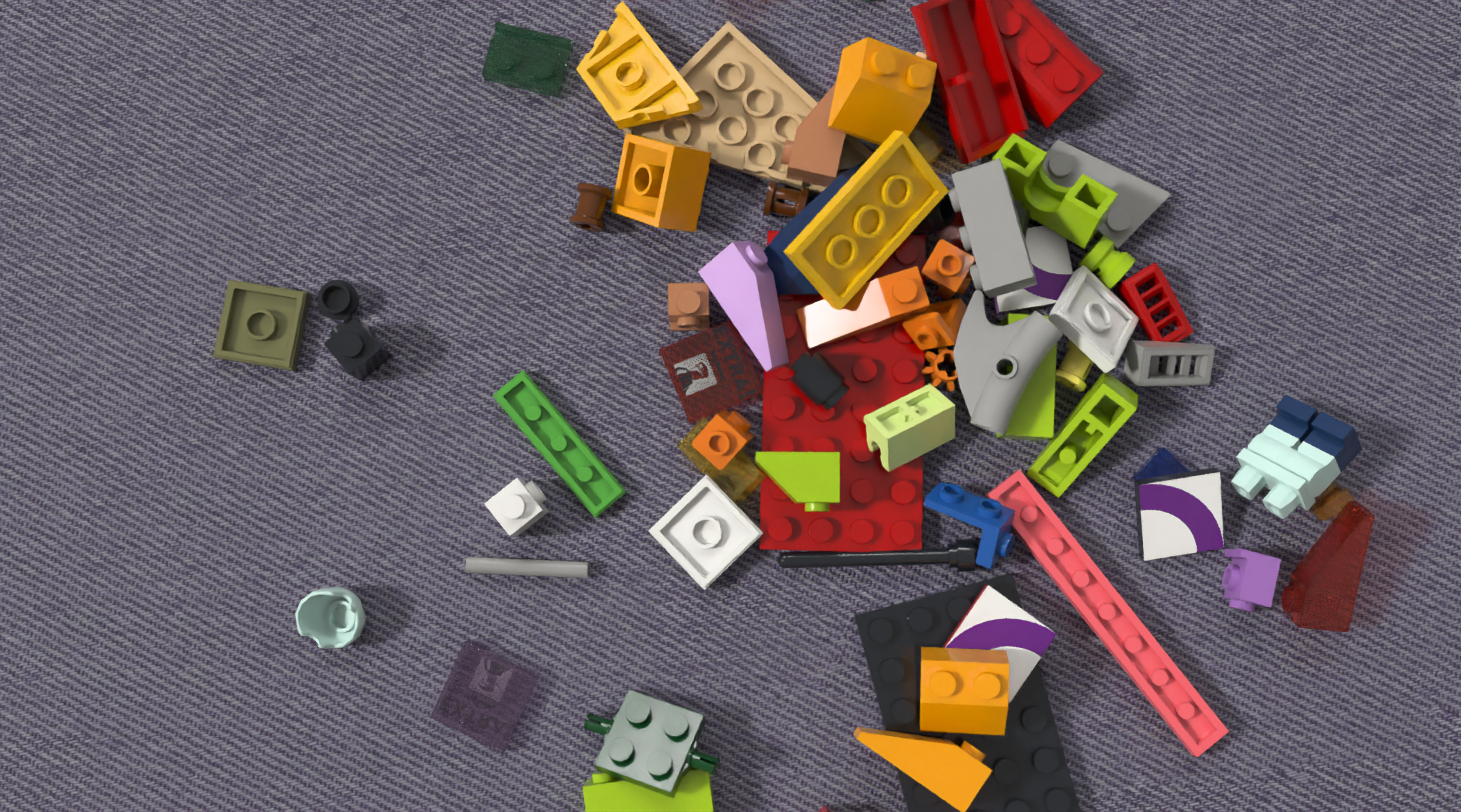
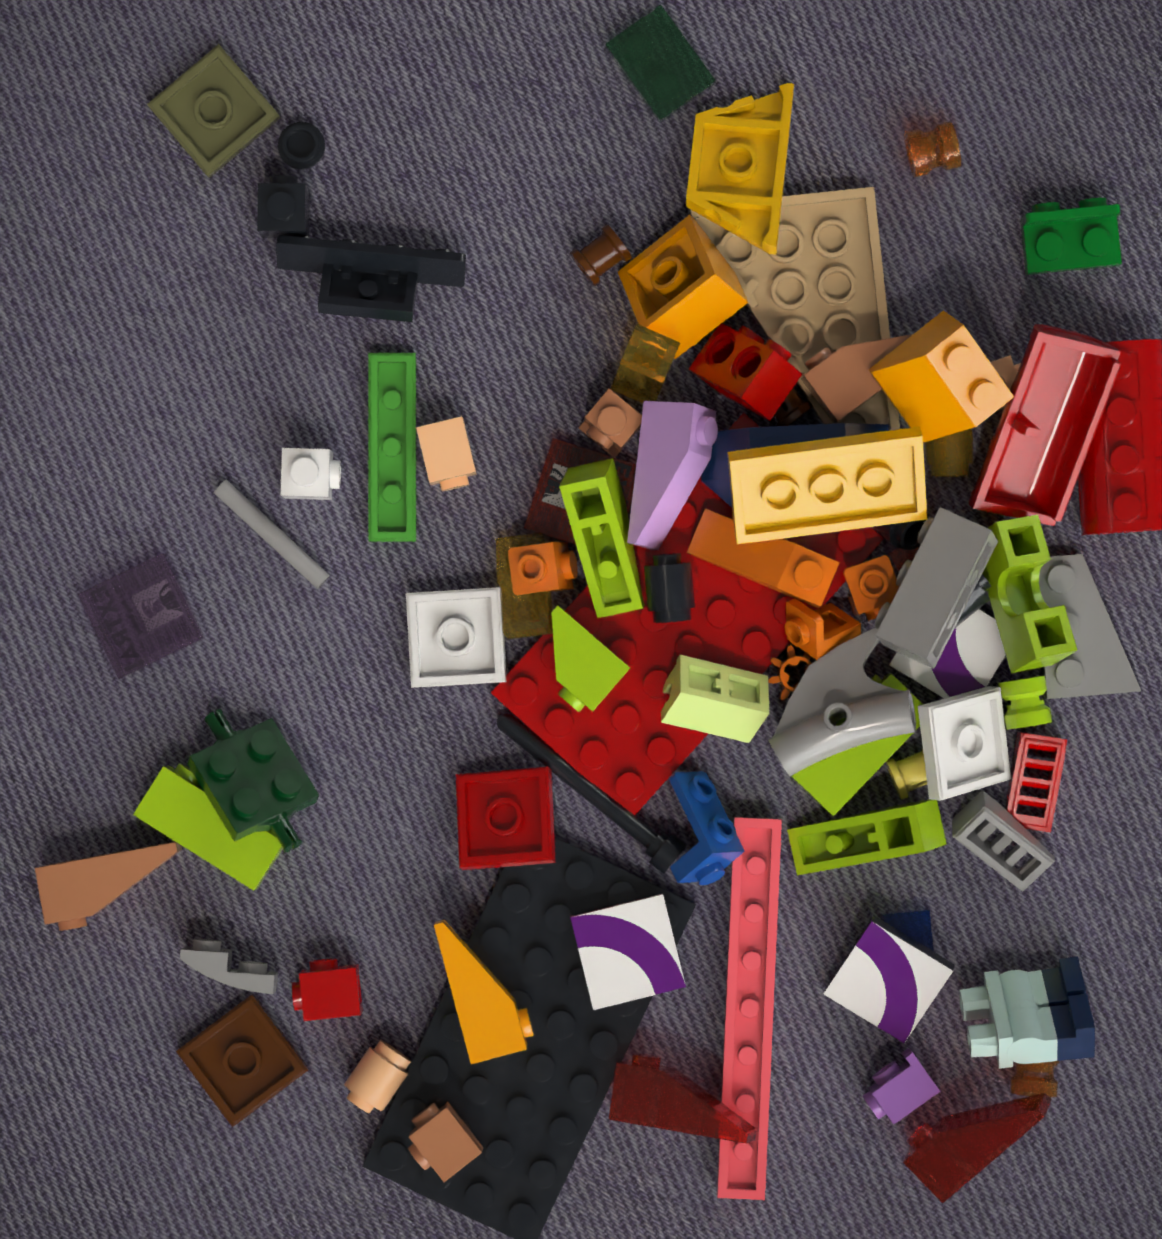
camera: 35 degrees right, 5 degrees up
(331, 617) = (64, 433): light aqua hair -> none
(450, 345) = (369, 277): none -> black bracket
(598, 416) = (447, 453): none -> light nougat brick
(678, 248) = (644, 365): none -> clear yellow slope
(747, 197) = (746, 370): none -> red brick
(747, 383) = (601, 534): none -> lime slope
(840, 624) = (505, 818): none -> red tile
(964, 690) = (560, 963): light orange slope -> none
(1112, 720) = (669, 1100): none -> clear red slope

